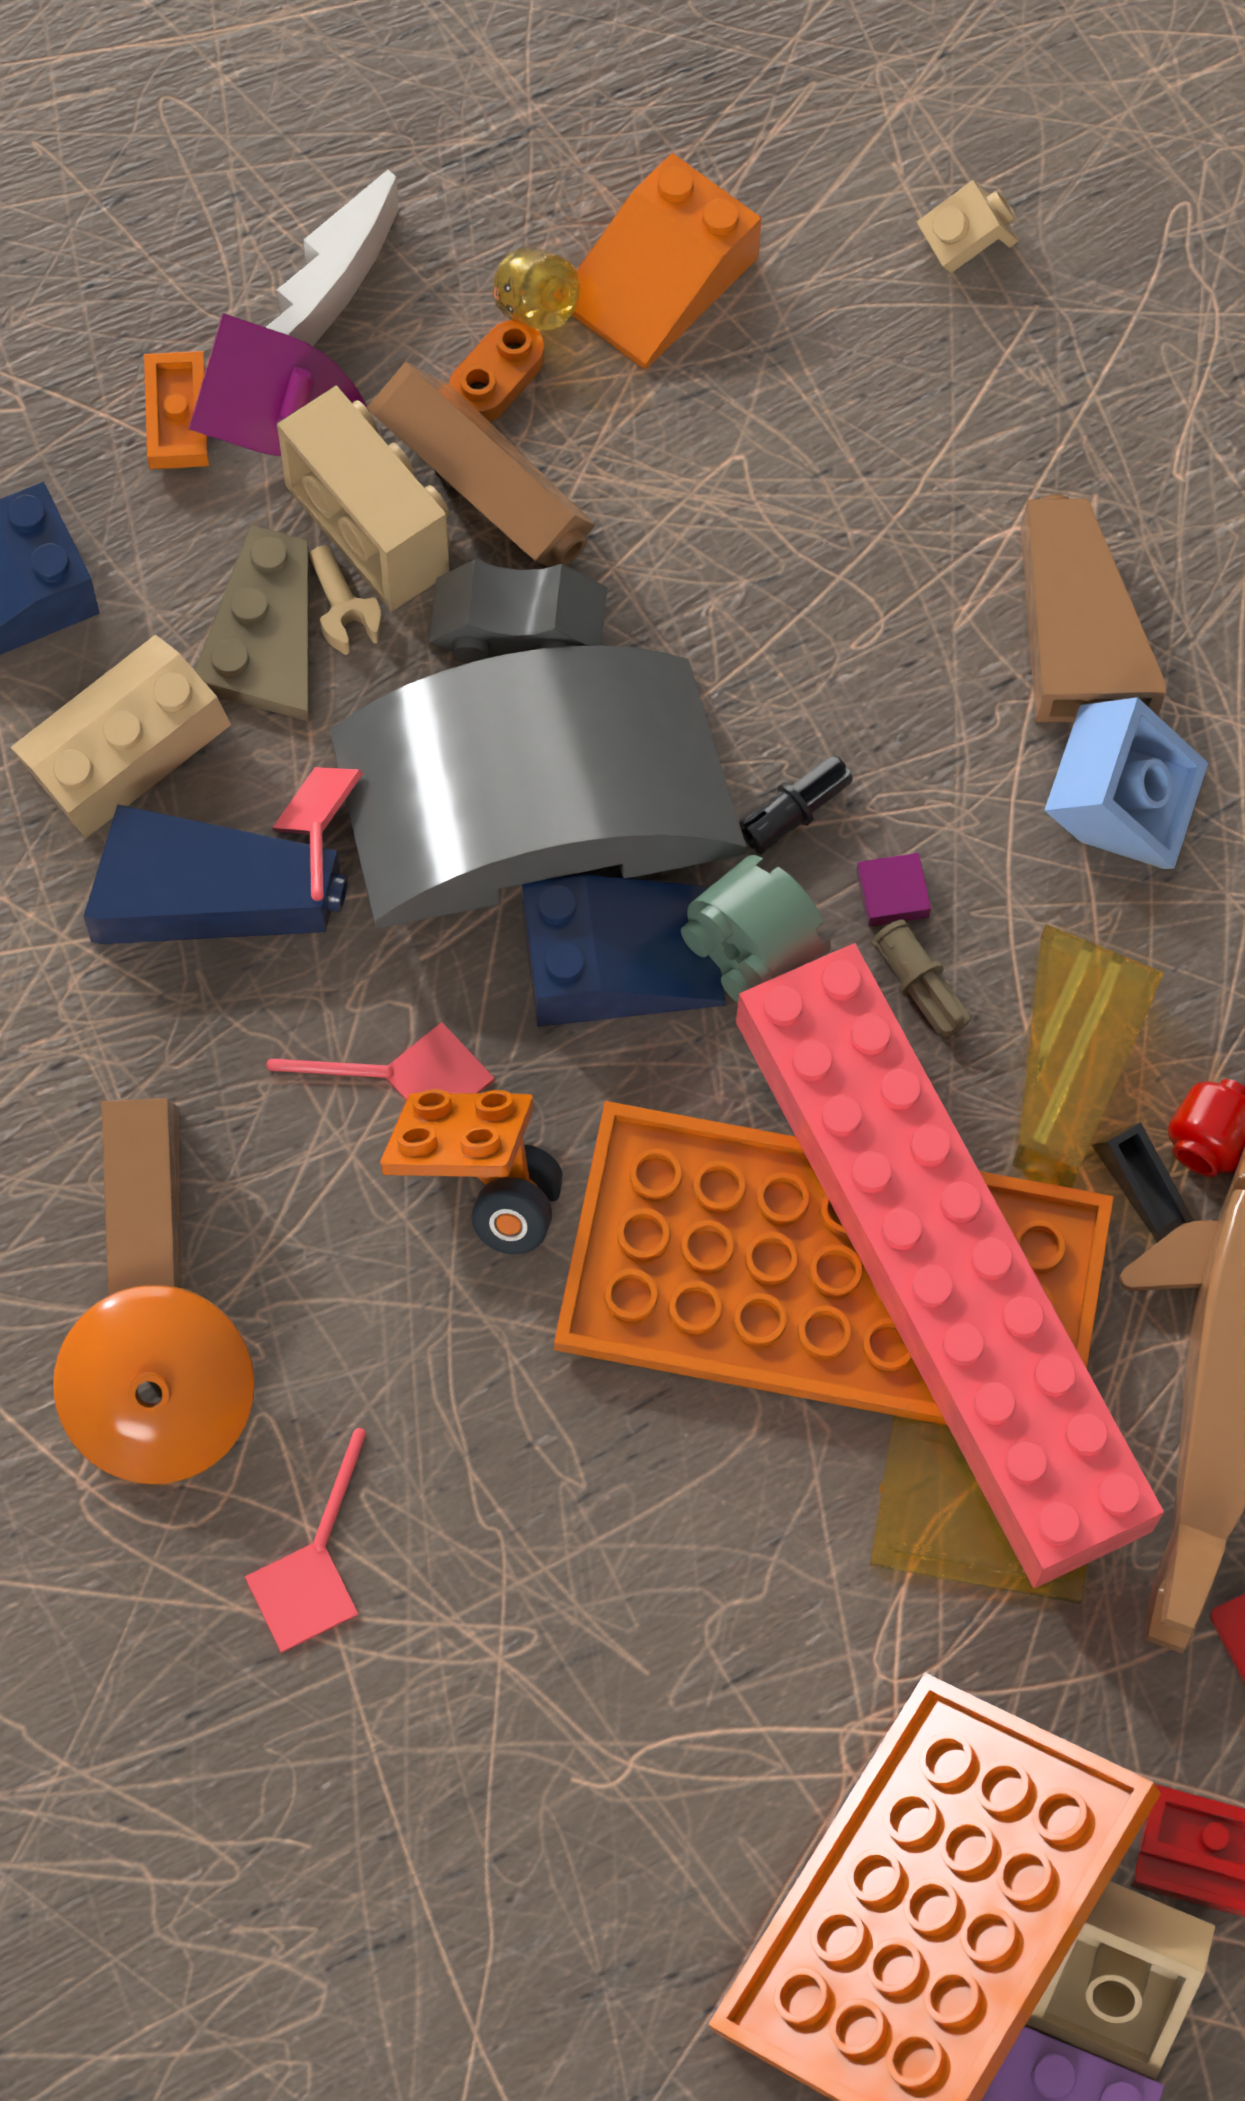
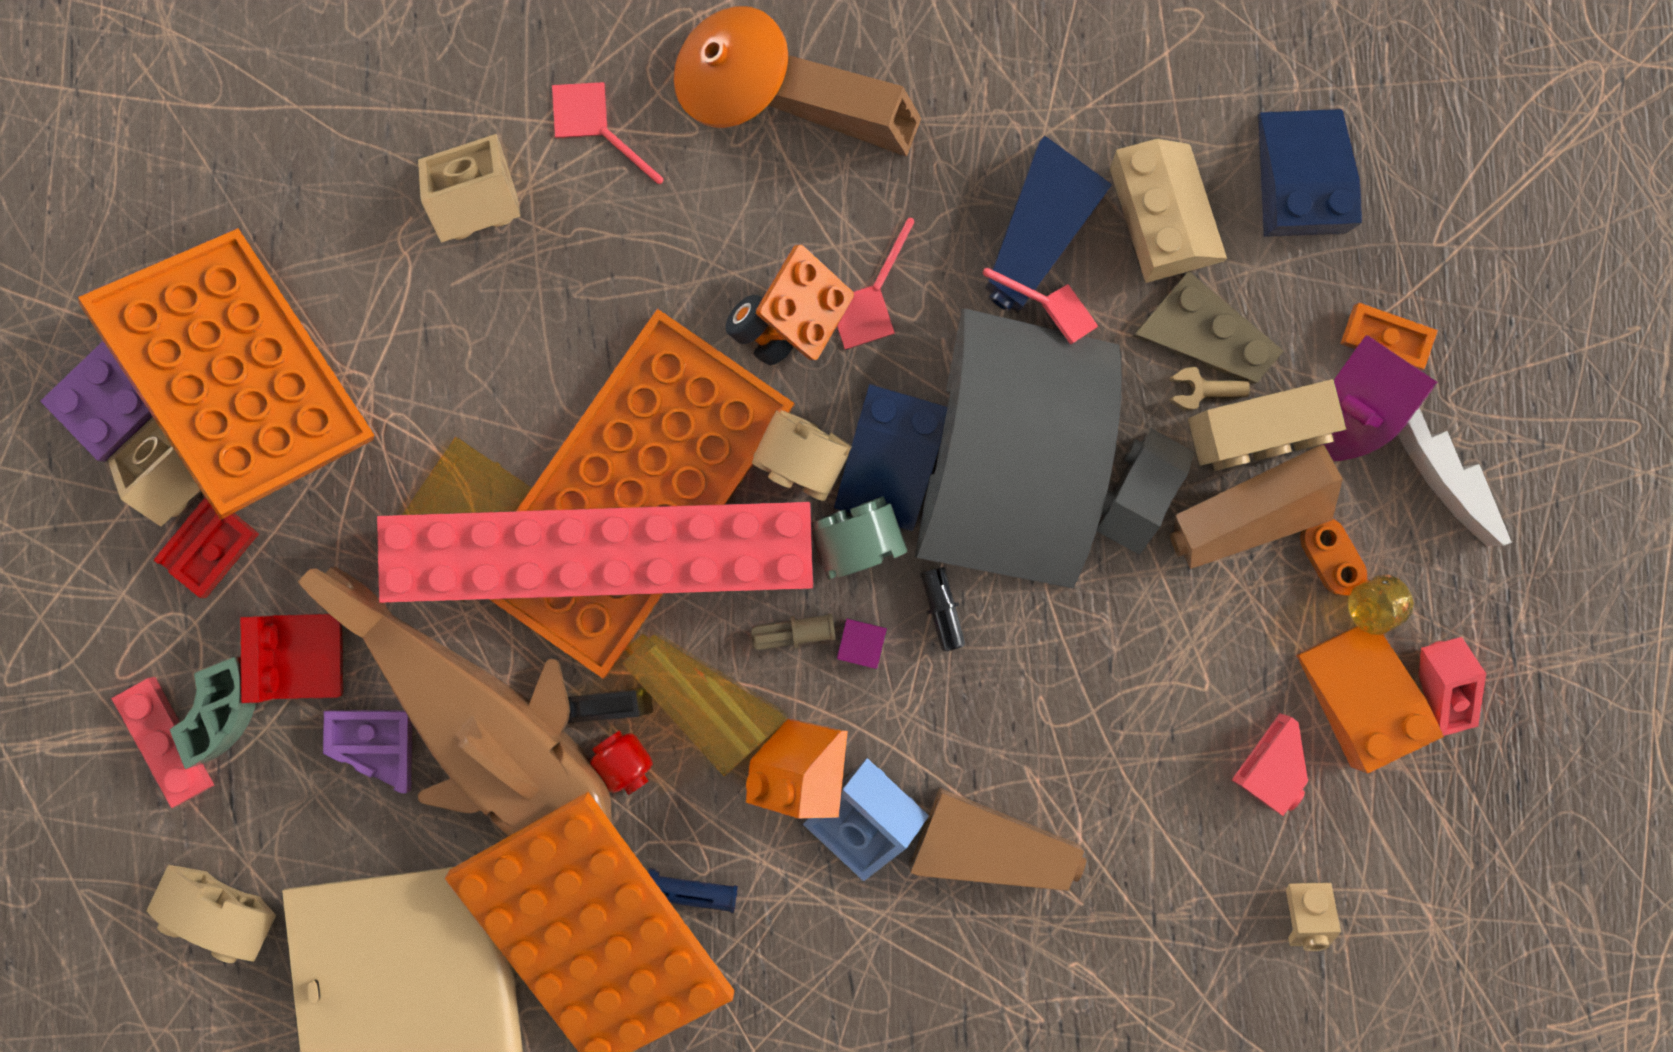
camera: 115 degrees right, 20 degrees up
(491, 1695) = (468, 189): none -> tan slope
(593, 176) = (1452, 684): none -> coral slope
(675, 1049) = (801, 454): none -> tan brick
(801, 332) = (1276, 767): none -> coral slope
(1106, 876) = (799, 771): none -> orange slope

